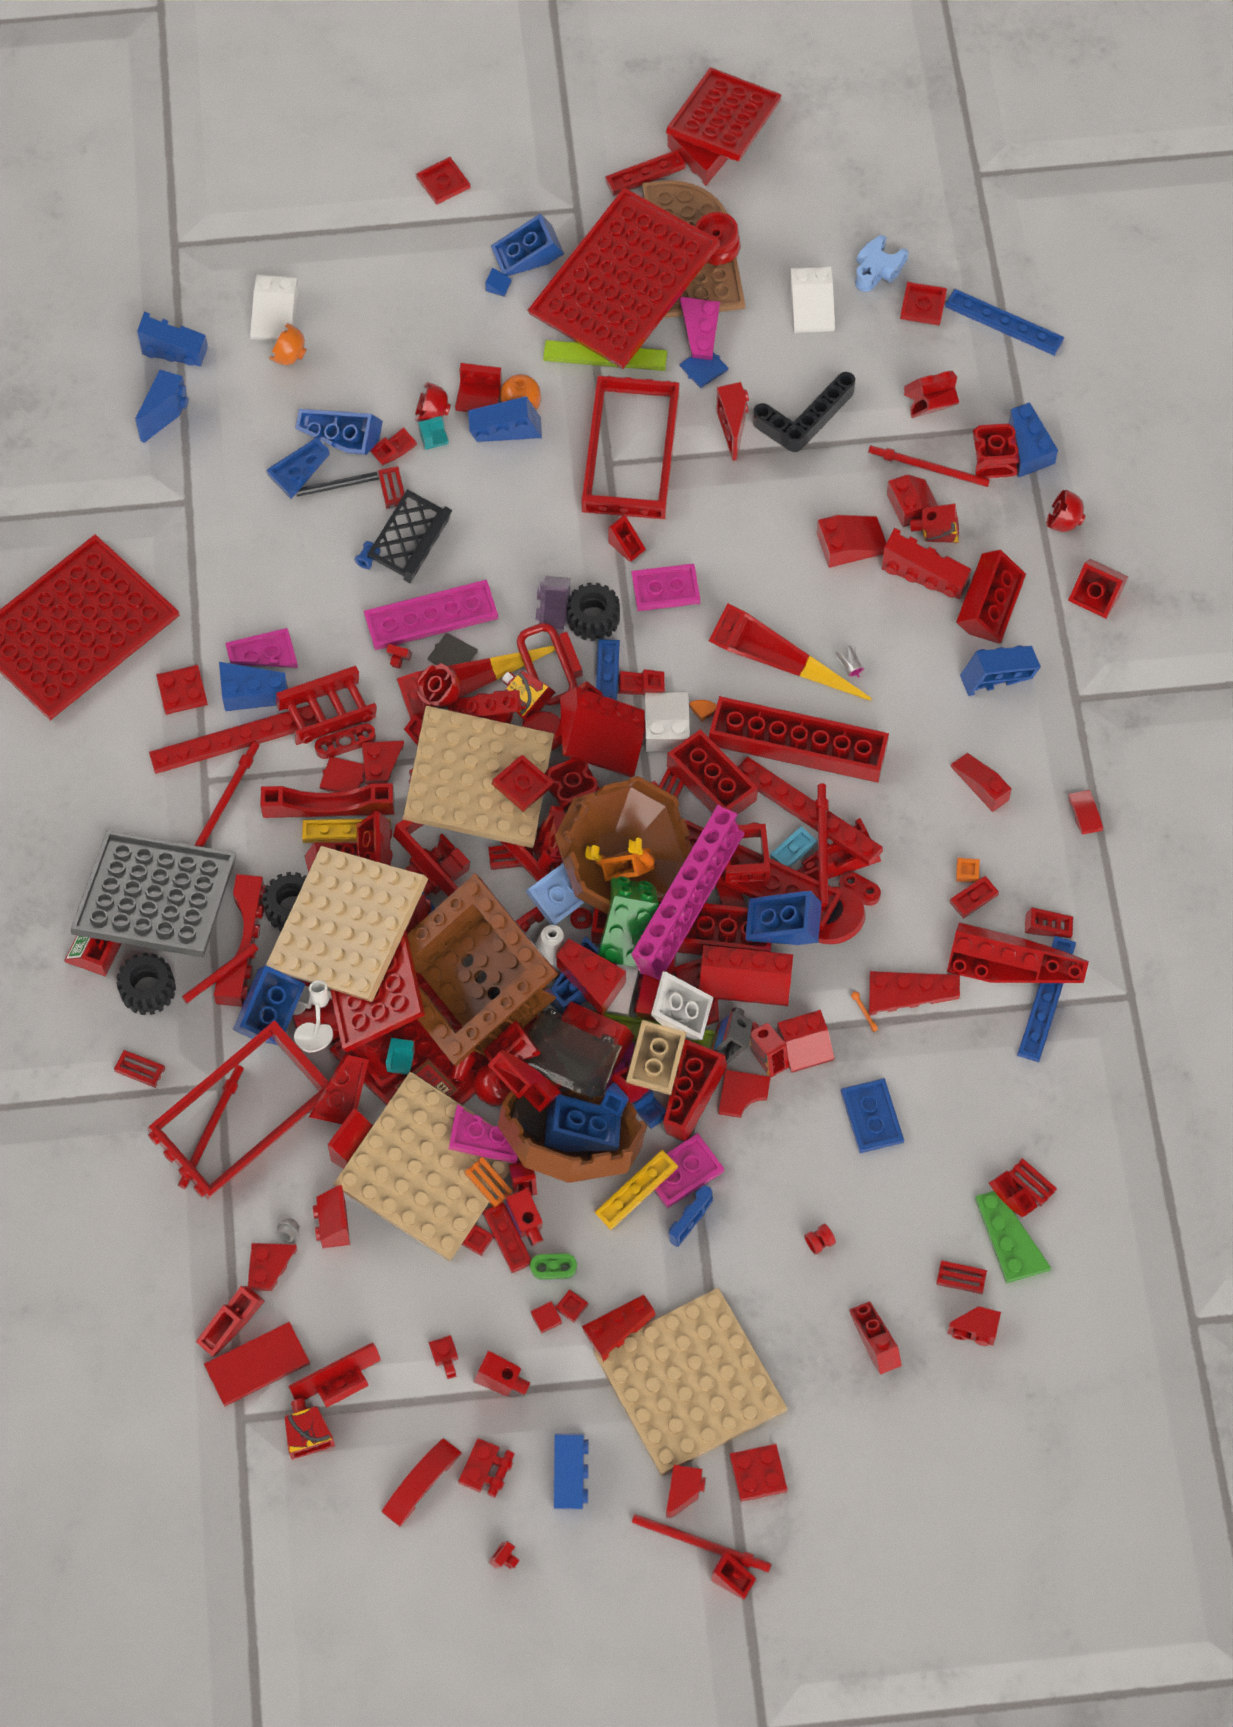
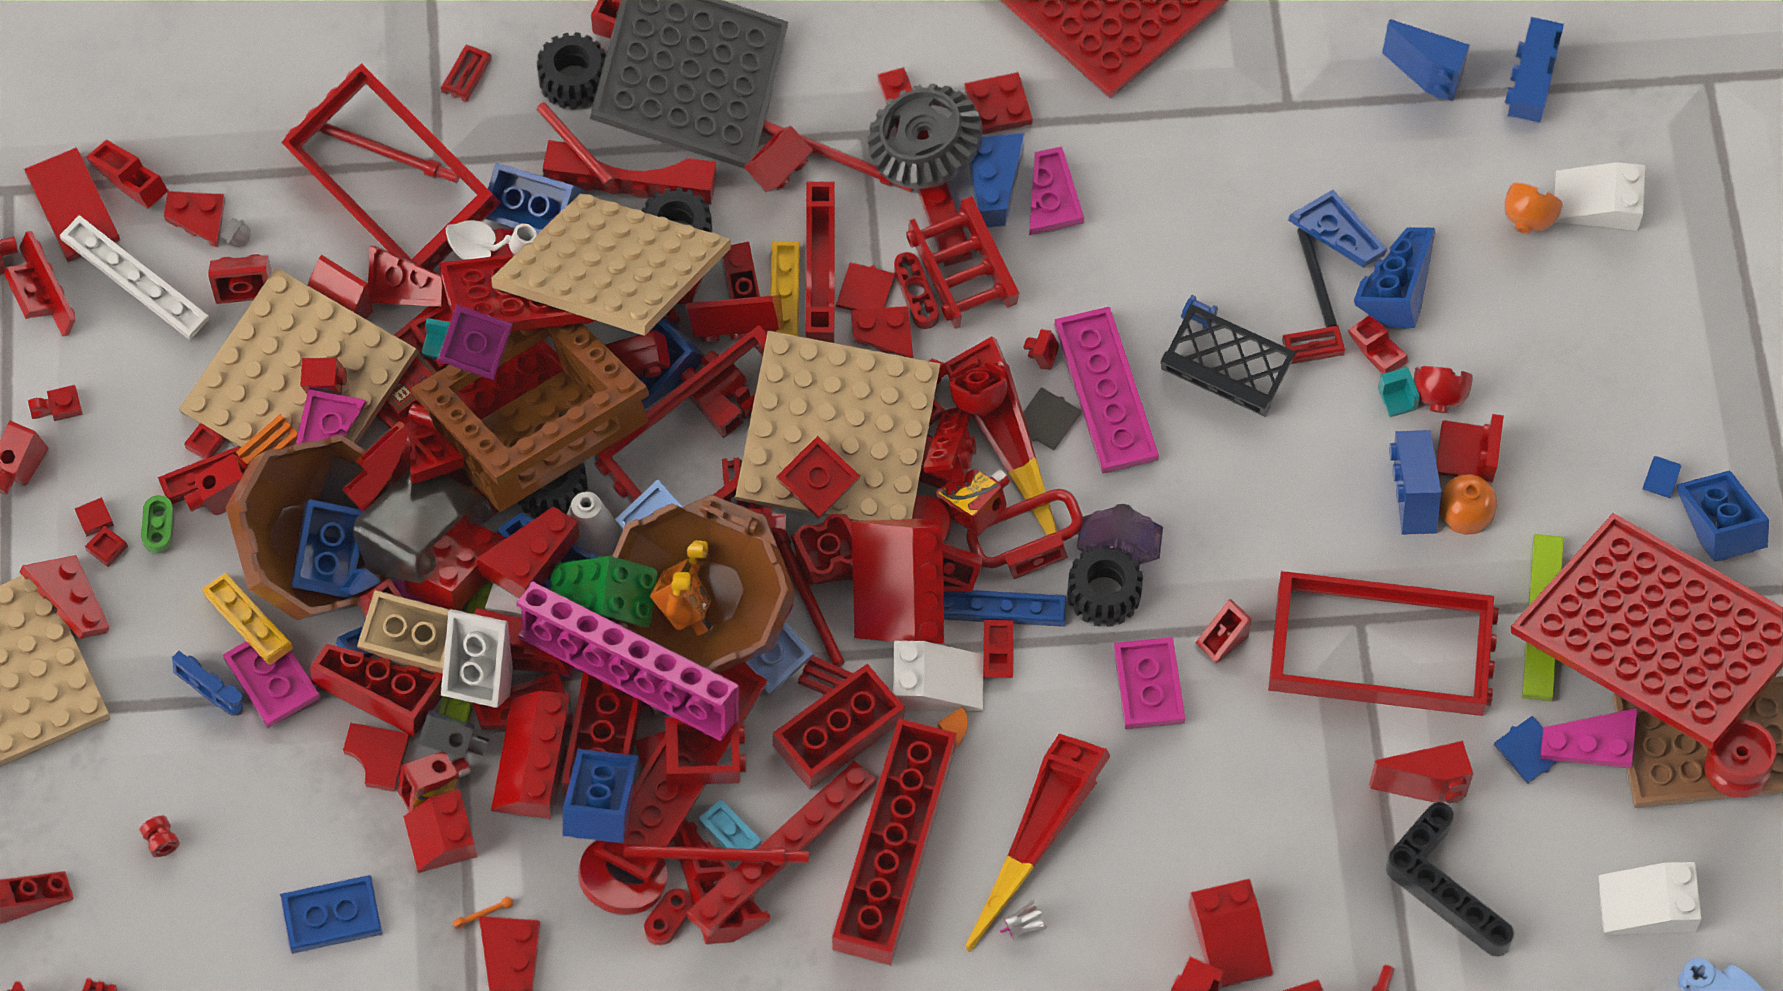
camera: 90 degrees right, 0 degrees up
(232, 833) = (778, 159): none -> red brick
(237, 745) = (954, 137): none -> dark grey gear
(331, 1303) = (134, 277): none -> white plate
(432, 1000) = (474, 342): none -> magenta plate
(436, 1136) = (323, 375): none -> red brick

